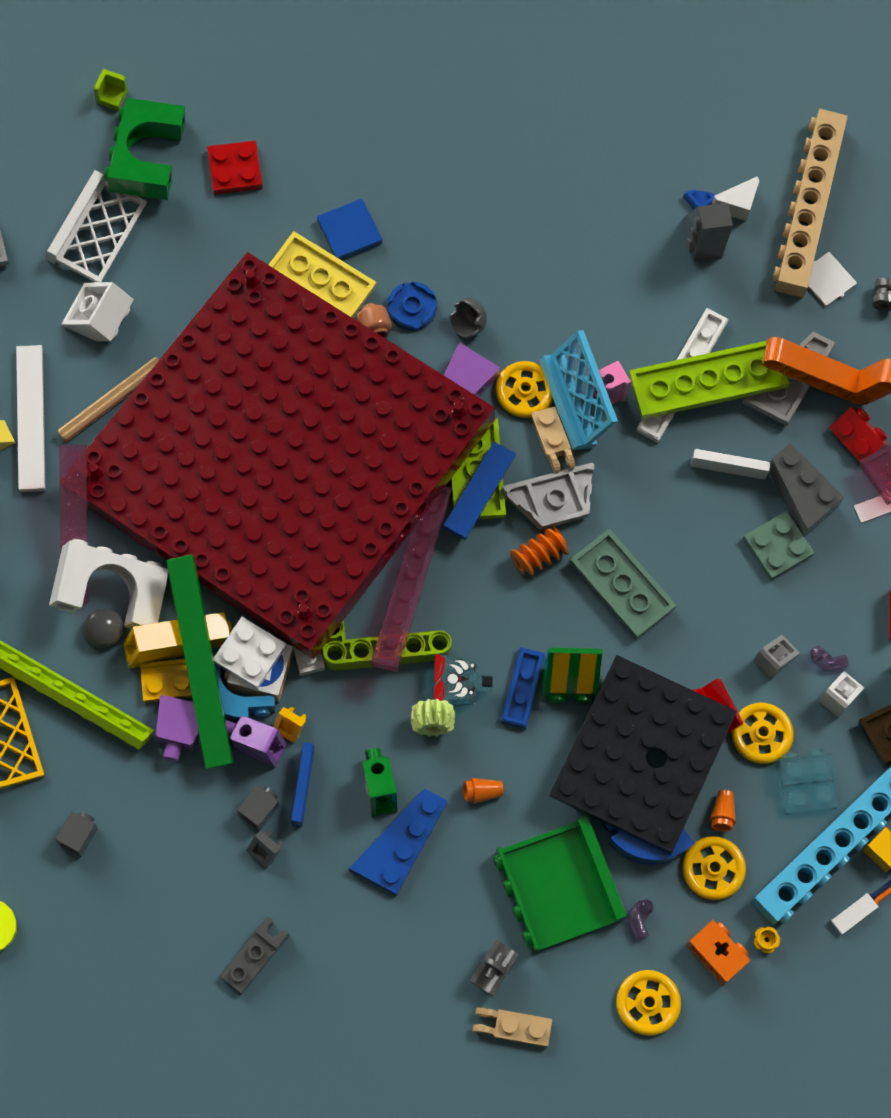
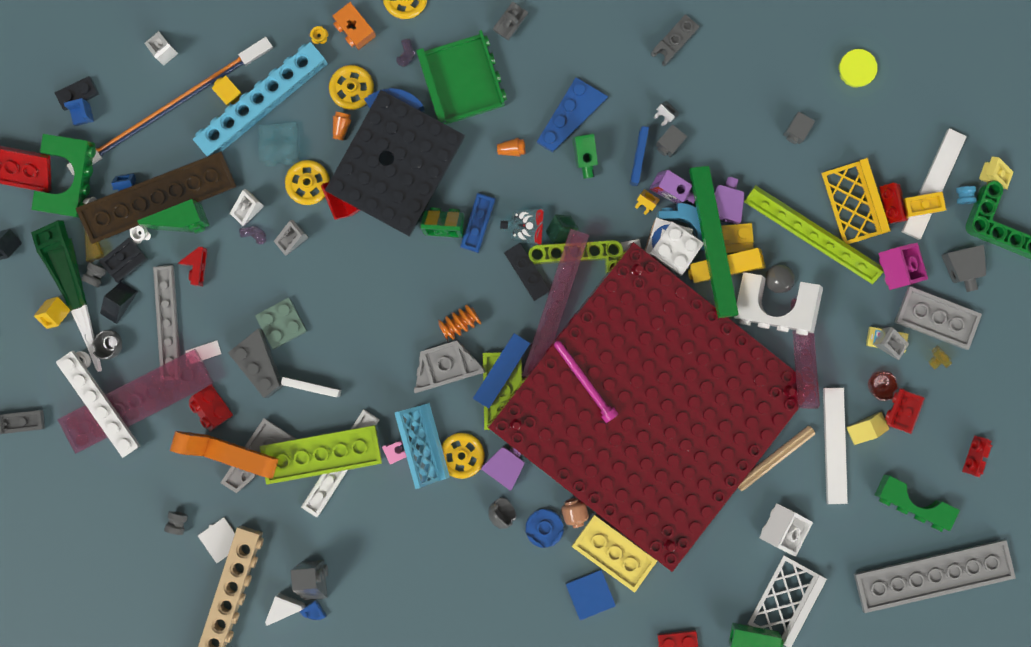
camera: 170 degrees left, 15 degrees up
(338, 428) = (607, 412): none -> dark pink piece
(407, 681) = (560, 227): none -> clear green panel
(432, 717) = (545, 198): yellowish green gear -> none
(449, 619) = (526, 272): none -> black plate
(552, 437) = (443, 414): tan hinge -> none
(622, 583) = (399, 297): sand green plate -> none

